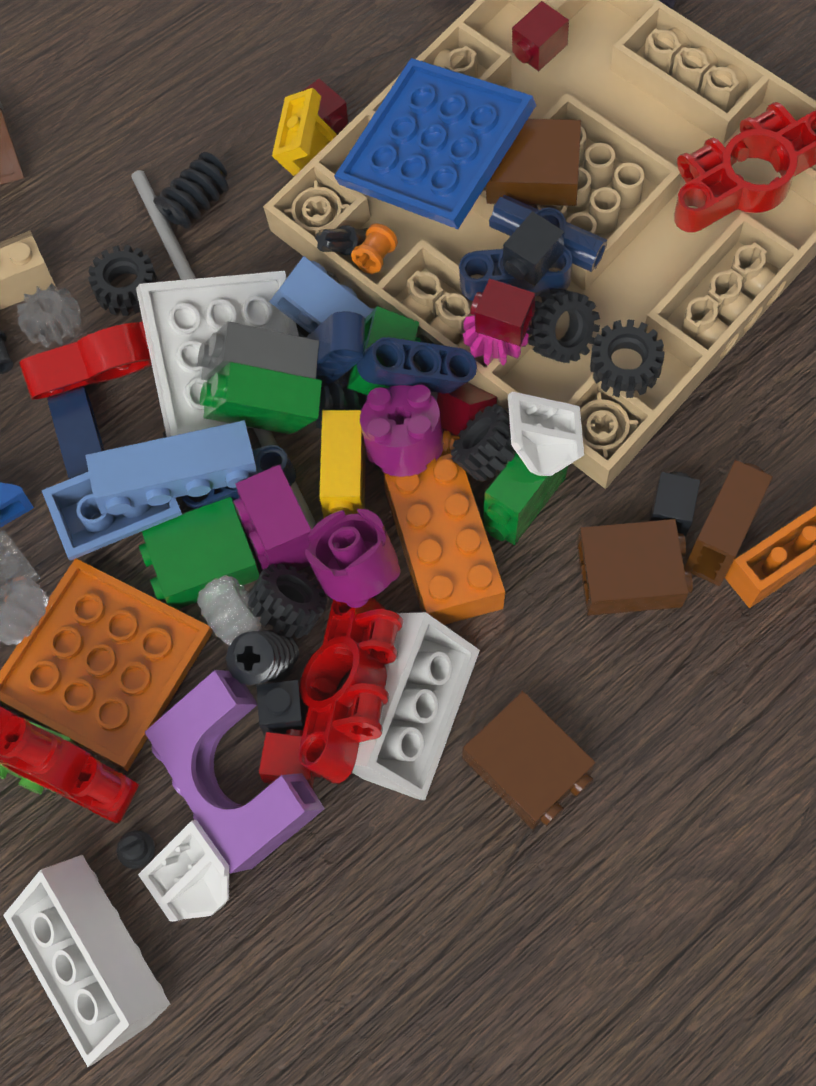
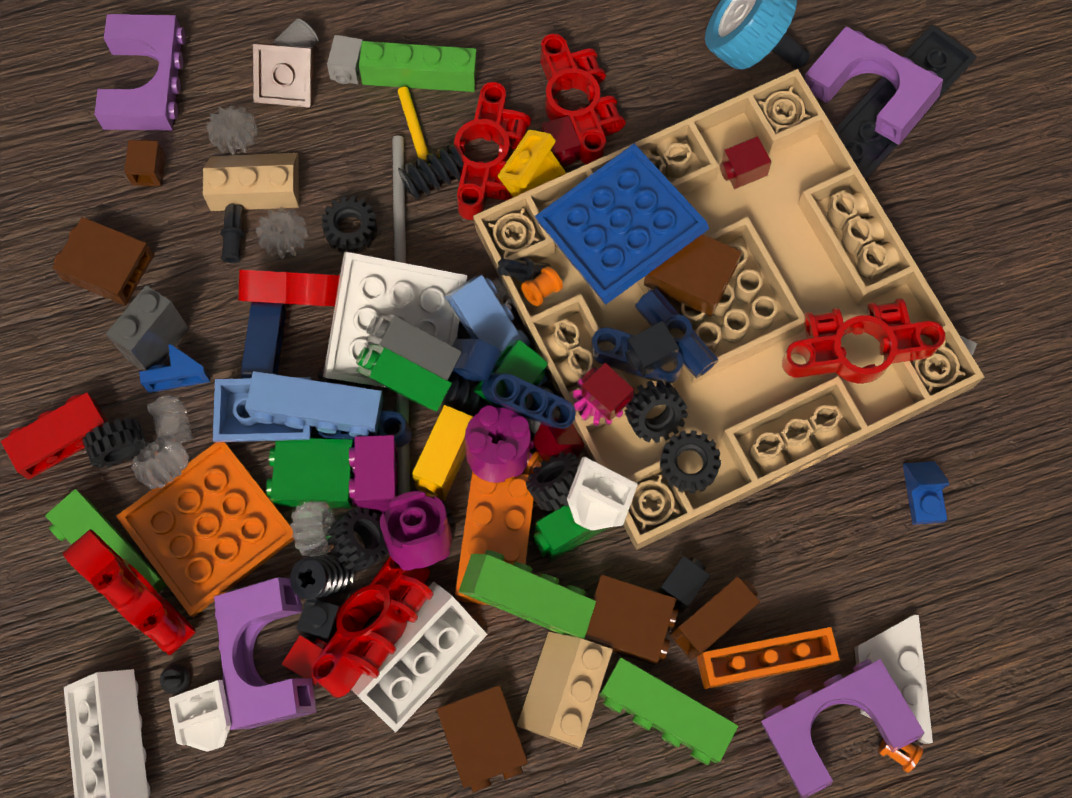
camera: 15 degrees right, 5 degrees up
(43, 114) = (344, 60): none -> light grey brick
(129, 92) = (418, 66): none -> bright green brick
(146, 151) = (413, 123): none -> yellow bar
(245, 120) = (490, 123): none -> red piece
(303, 38) = (580, 72): none -> red piece
(510, 575) = (527, 595): none -> bright green brick
(597, 669) = (565, 688): none -> tan slope
(723, 645) = (668, 711): none -> bright green brick

